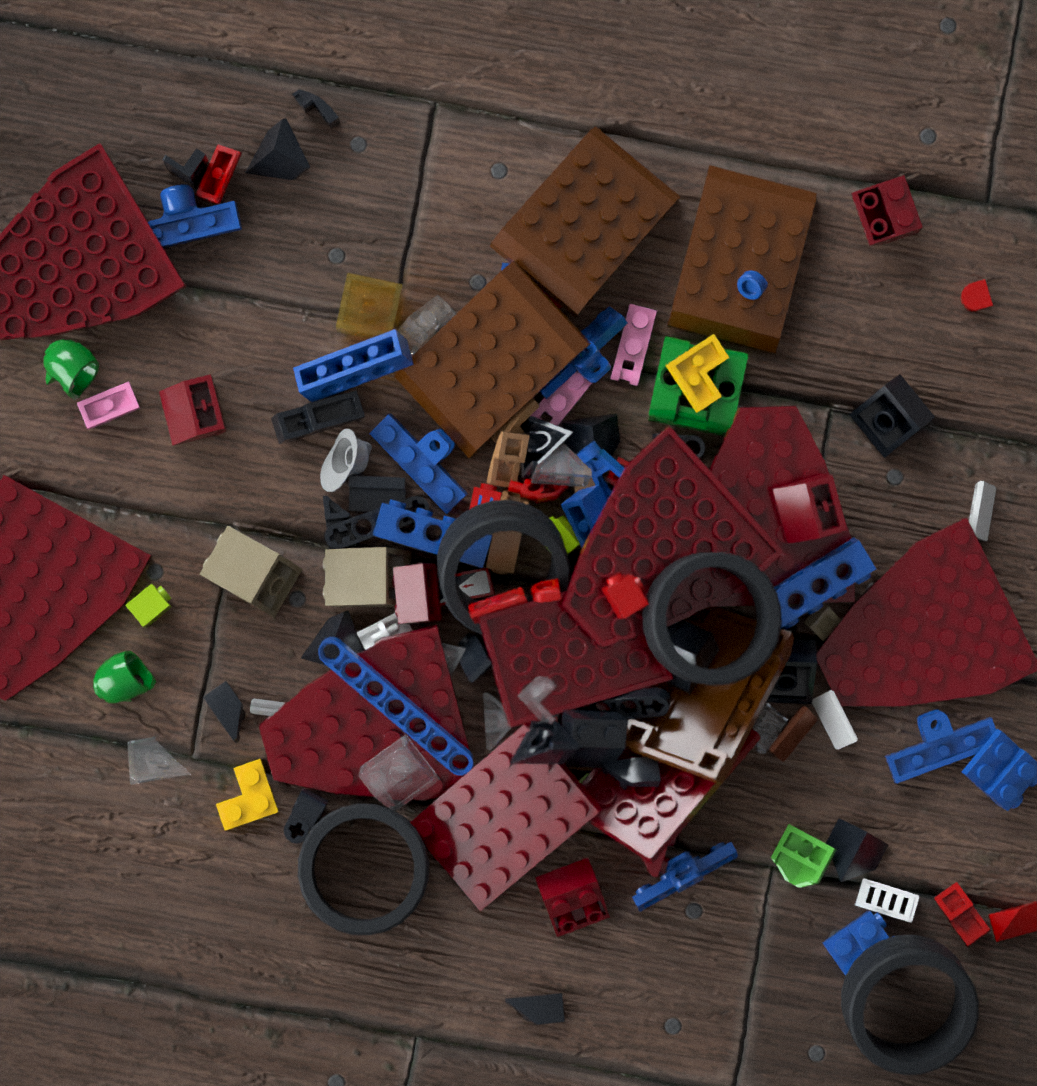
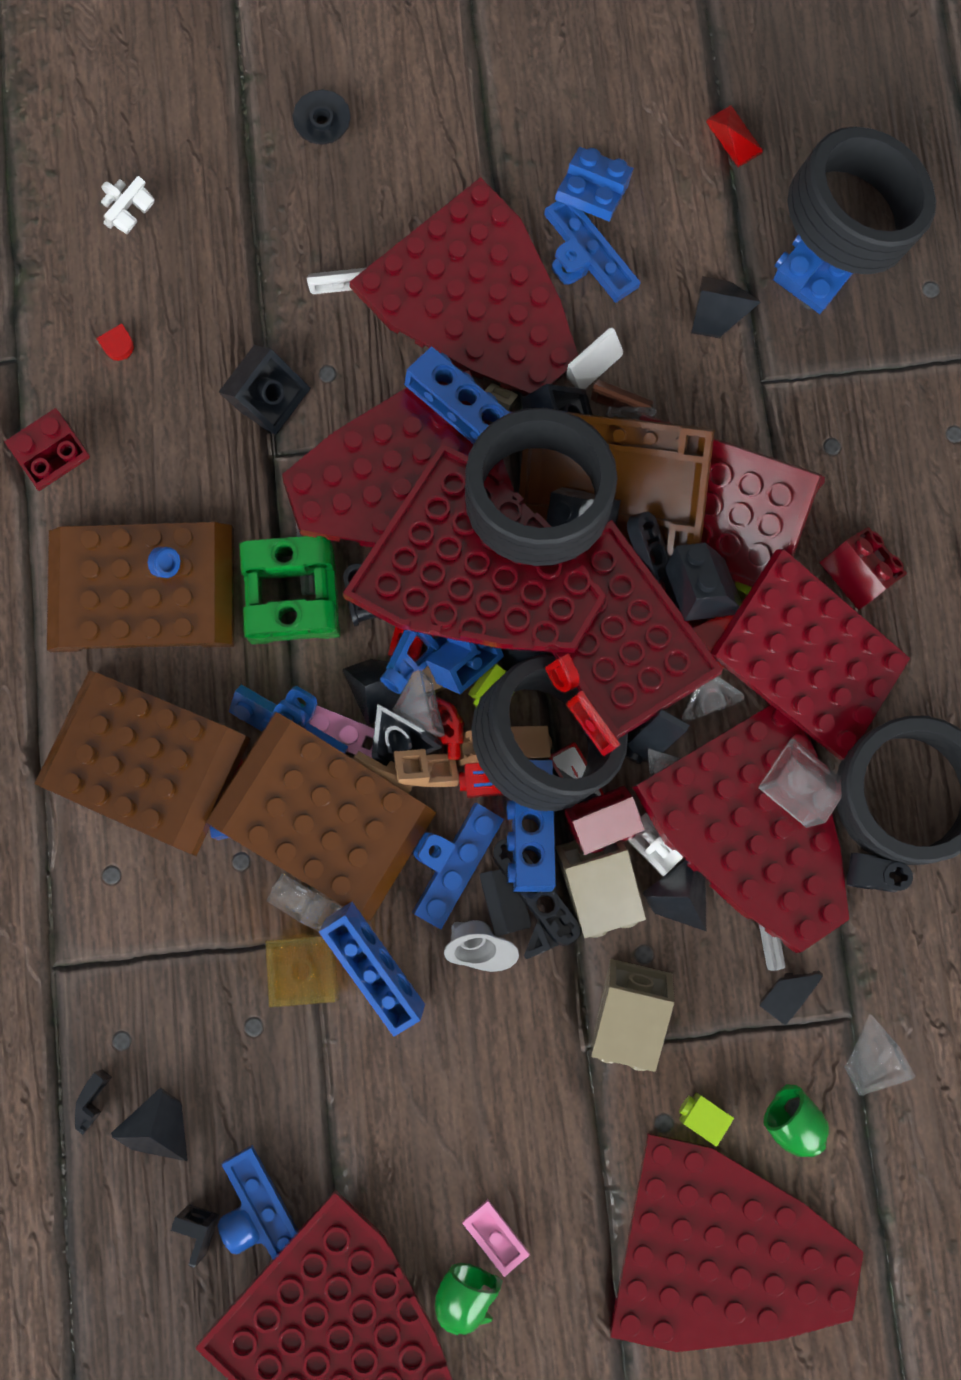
camera: 100 degrees left, 5 degrees down
(192, 410) = (473, 1137): dark red slope -> none
(218, 174) = (196, 1192): red slope -> none
(256, 797) = (876, 933): yellow plate -> none
(317, 417) = (439, 992): black slope -> none
(391, 693) = (724, 816): blue beam -> none
(534, 694) = (682, 645): clear panel -> none
(545, 745) = (730, 624): black slope -> none
(625, 594) = (543, 584): red brick -> none
(634, 343) = (262, 674): bright pink plate -> none
(634, 772) = (724, 529): black slope -> none
(683, 873) = (804, 454): blue plate -> none
(691, 372) = (277, 592): yellow plate -> none
(802, 857) = (744, 351): bright green slope -> none
(809, 509) = (388, 426): dark red slope -> none
(911, 904) = (759, 241): white slope -> none
(962, 914) = (748, 187): red slope -> none

